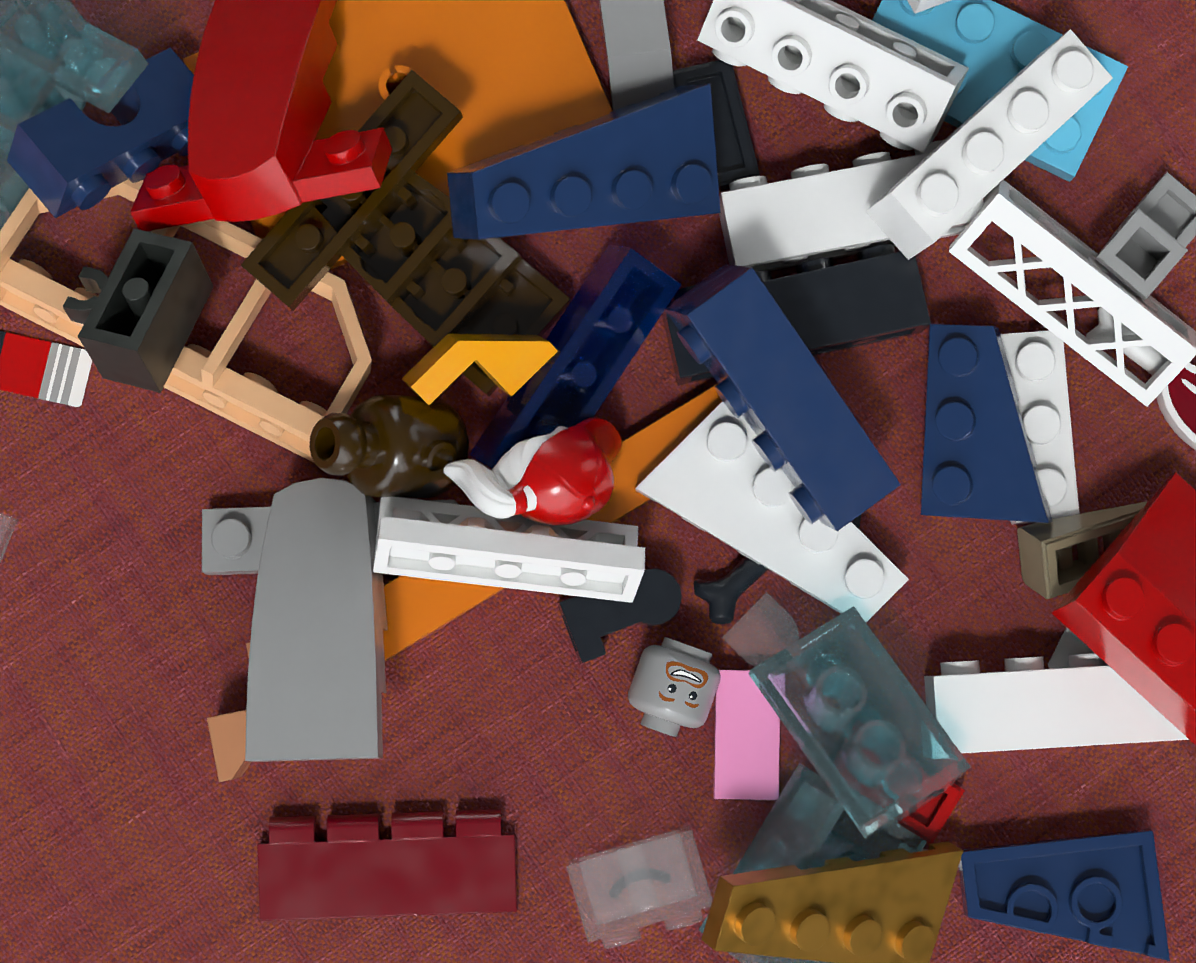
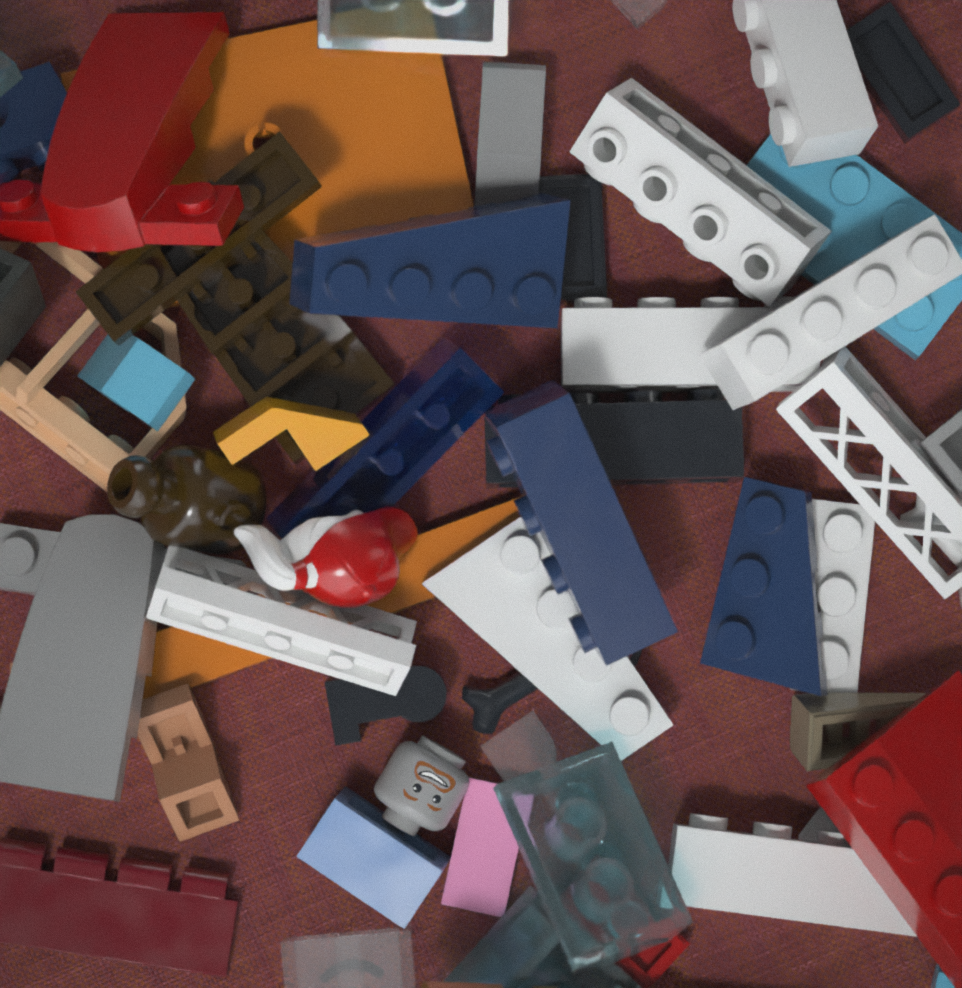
camera: 15 degrees right, 0 degrees up
(316, 340) = (137, 379): none -> medium azure slope
(436, 710) = (185, 763): none -> nougat slope
(640, 766) = (373, 857): none -> medium blue hinge

